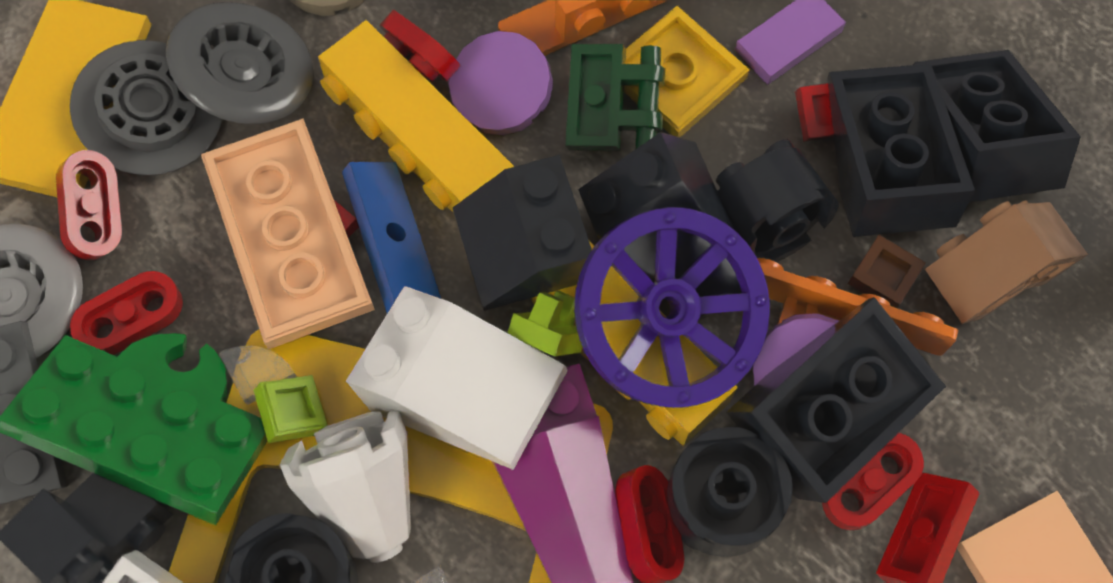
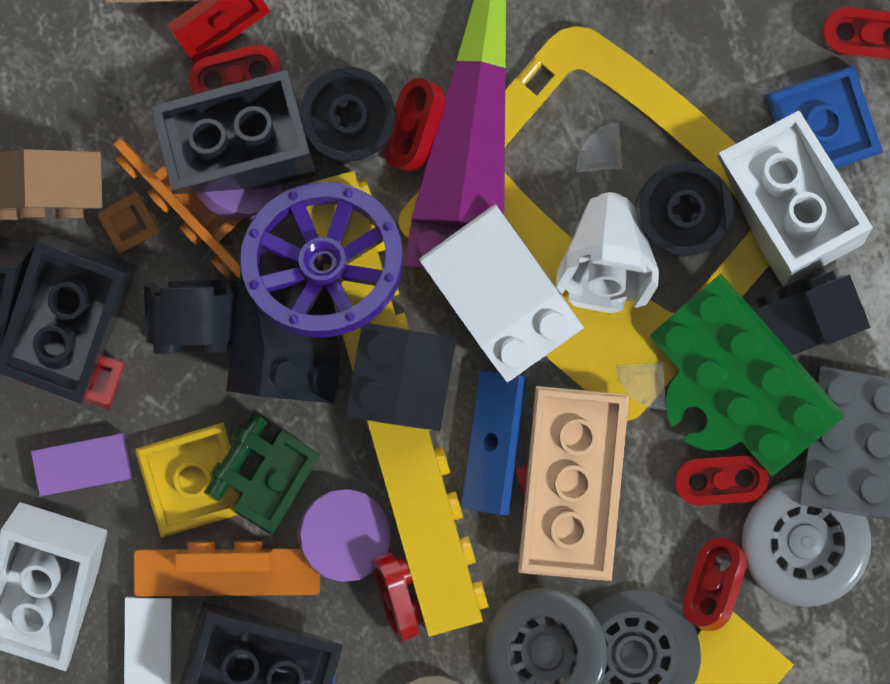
camera: 150 degrees left, 20 degrees up
(290, 408) = (631, 338): lime tile -> none
(549, 325) = (416, 298): lime tile -> none

